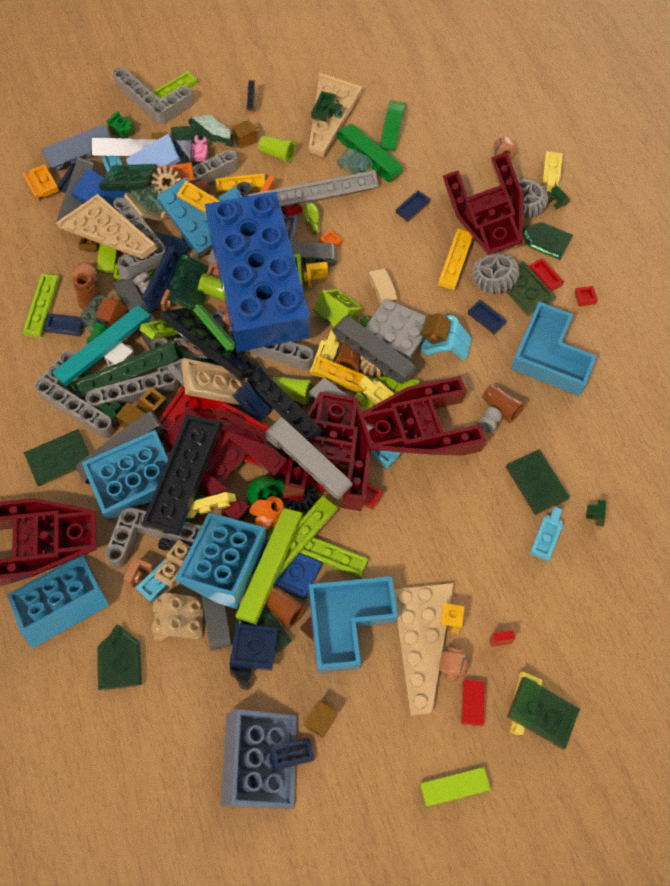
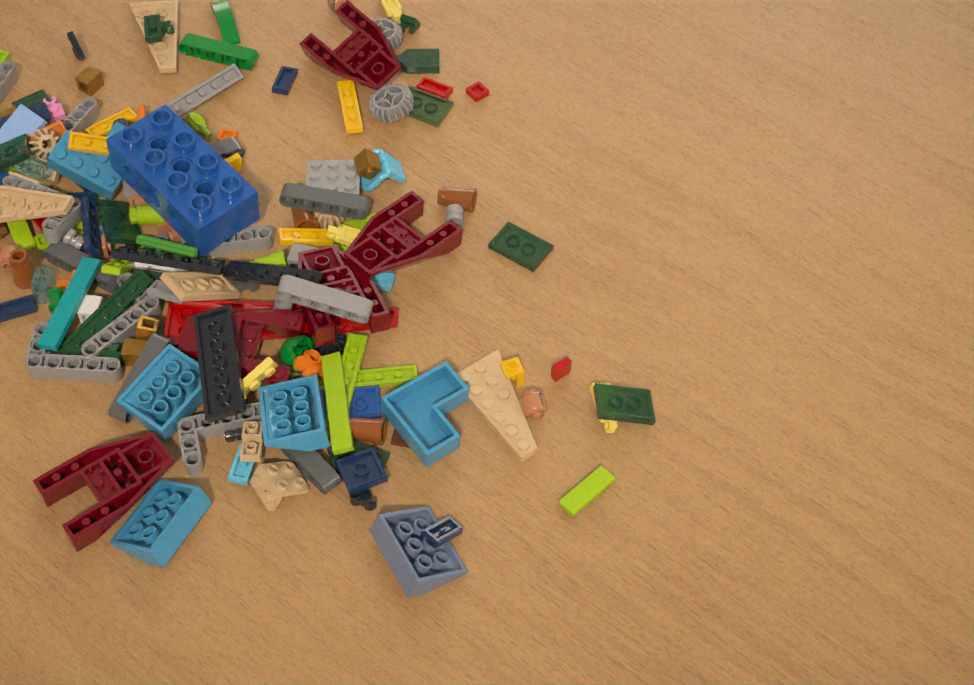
camera: 30 degrees left, 10 degrees down
(56, 457) = (82, 415): clear green tile -> none
(111, 310) = (59, 273): dark orange brick -> none
(119, 661) = (248, 541): clear green tile -> none
(134, 572) = (220, 461): nougat bracket -> none
(212, 129) = (55, 88): tile -> none
(251, 402) = (238, 290): dark blue tile -> none
(278, 148) = (129, 80): lime plant -> none
(320, 718) = (450, 496): pearl gold brick -> none
(327, 349) = (280, 221): light yellow hinge -> none
(335, 305) = (268, 186): lime slope -> none
(354, 162) = (209, 64): clear light blue beam -> none
(382, 284) = (298, 152): tan slope -> none
(473, 702) = (565, 426): red tile -> none
(486, 317) = (404, 141): dark blue tile -> none
(547, 358) = (474, 149): dark azure piece -> none
(547, 535) = (552, 280): medium azure hinge -> none
(597, 512) = (581, 246): dark green tile -> none

